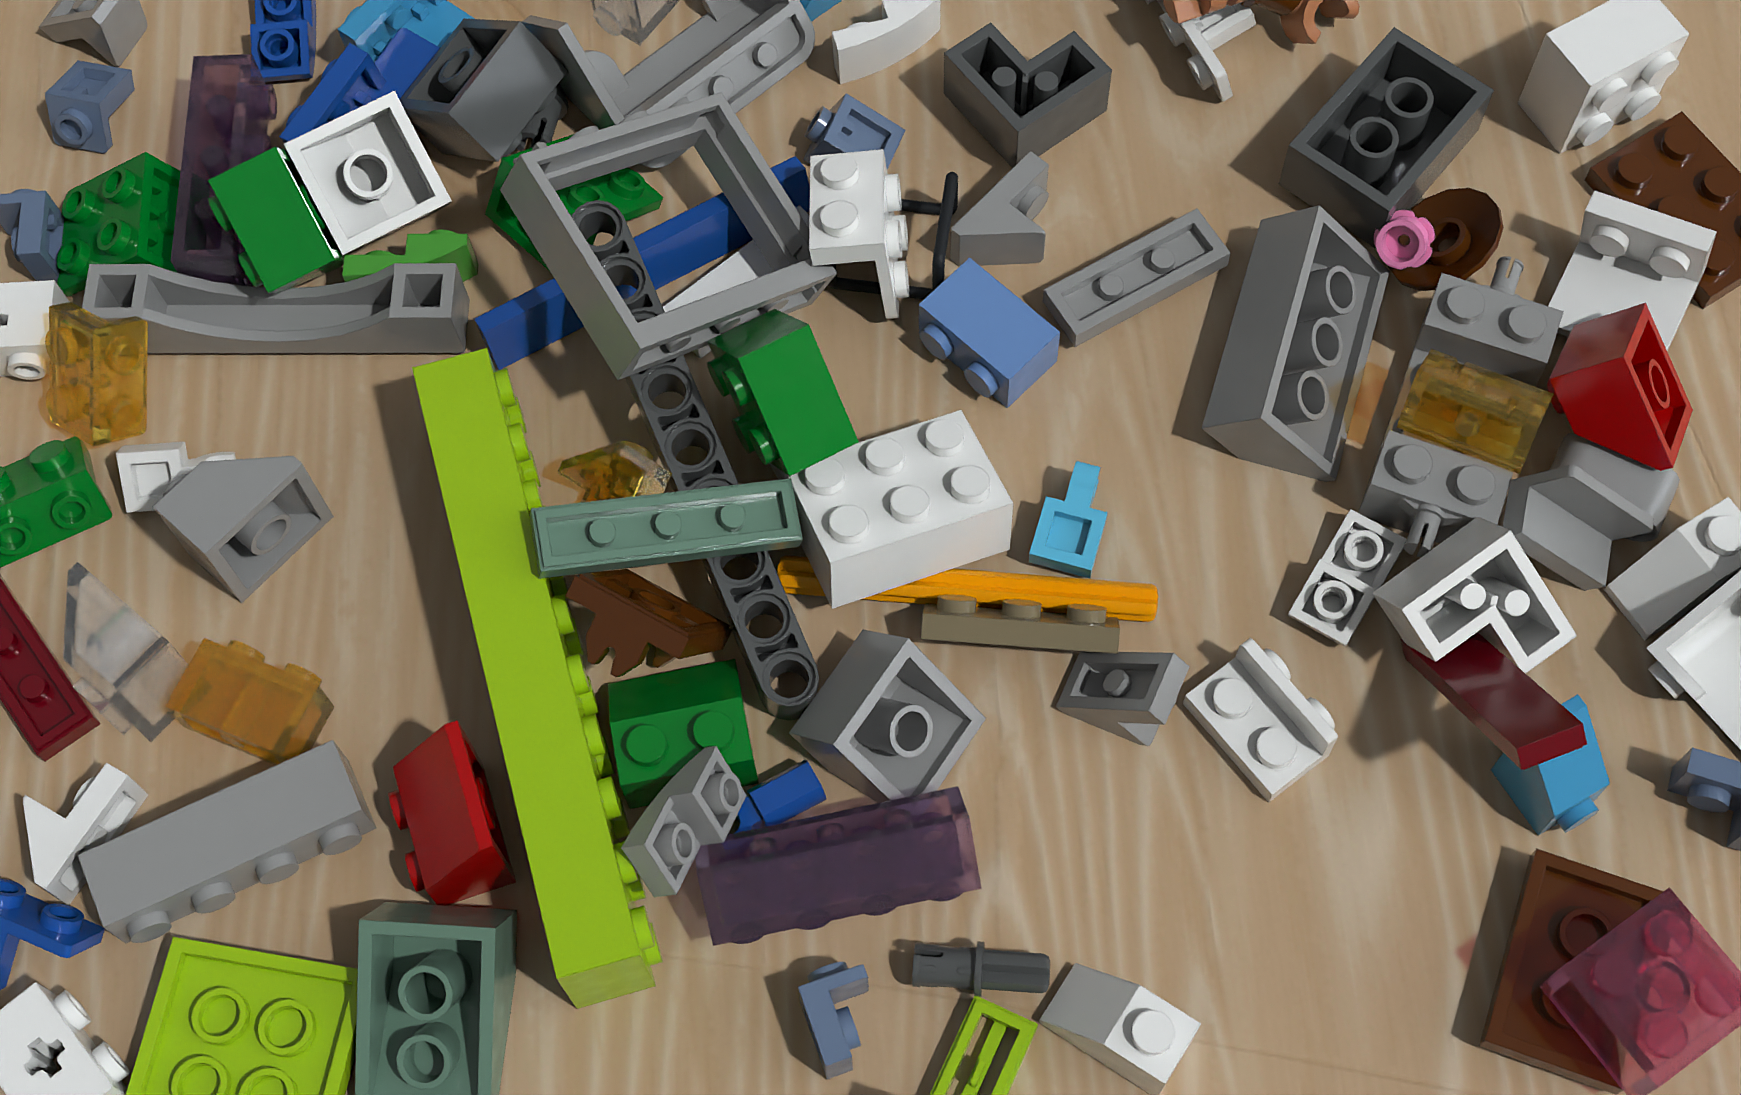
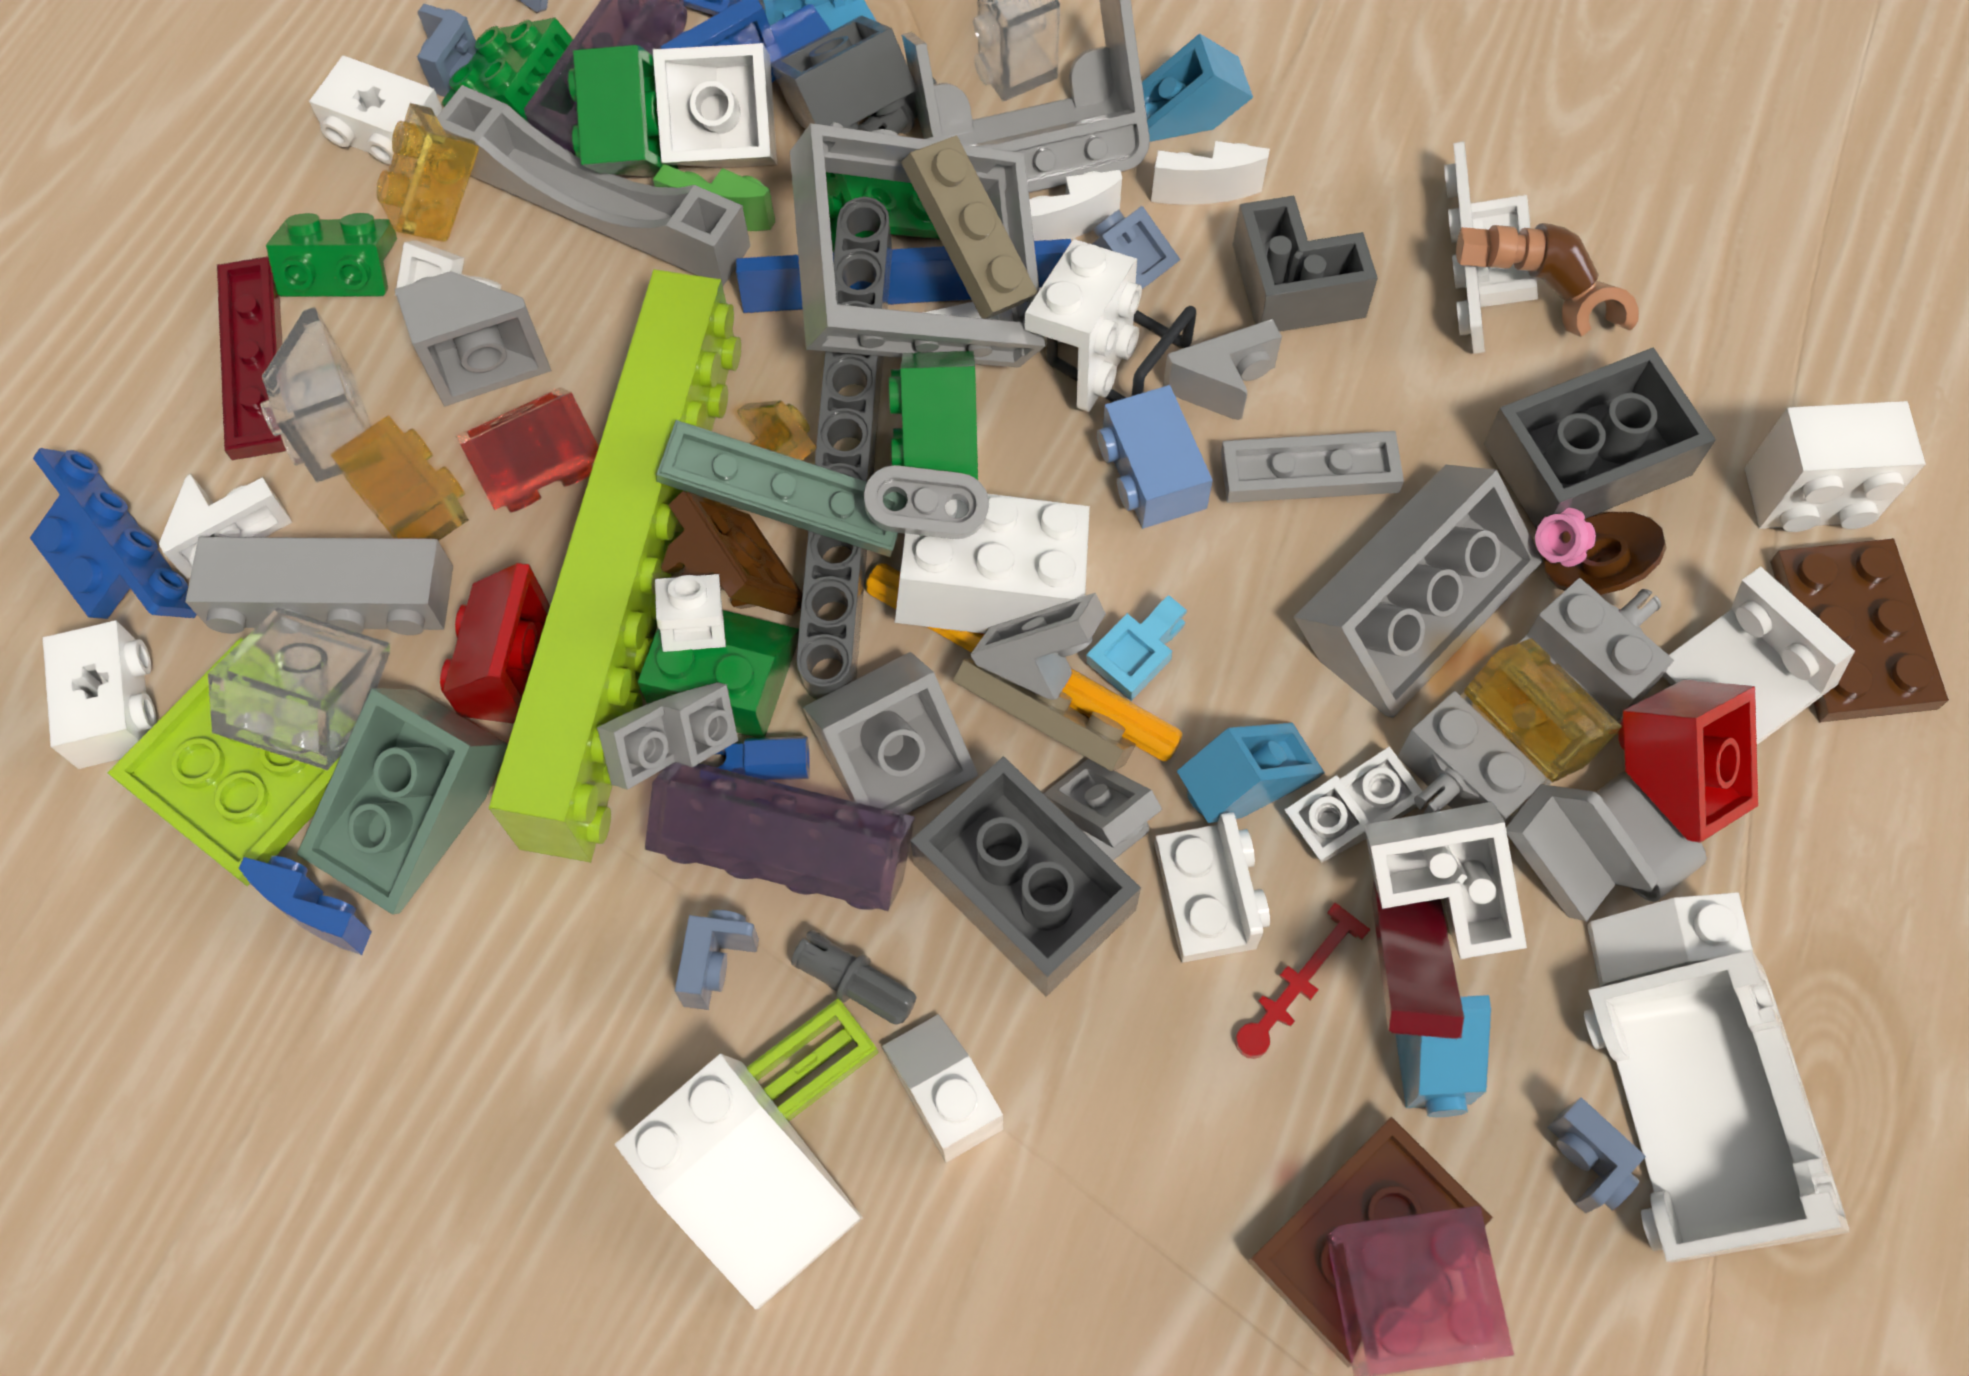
camera: 25 degrees right, 0 degrees up
(276, 956) = (295, 687): none -> clear slope
(375, 604) = (530, 449): none -> clear red brick
(646, 691) = (690, 612): none -> white bracket
(714, 189) = (969, 227): none -> dark tan plate
(783, 114) = (1085, 205): none -> white slope
(818, 477) = (926, 499): none -> light grey plate
(981, 568) = (1035, 646): none -> light grey slope
(1091, 791) = (1025, 875): none -> dark grey brick
(1236, 593) = (1248, 770): none -> dark azure slope
(1373, 840) = (1254, 1038): none -> red piece

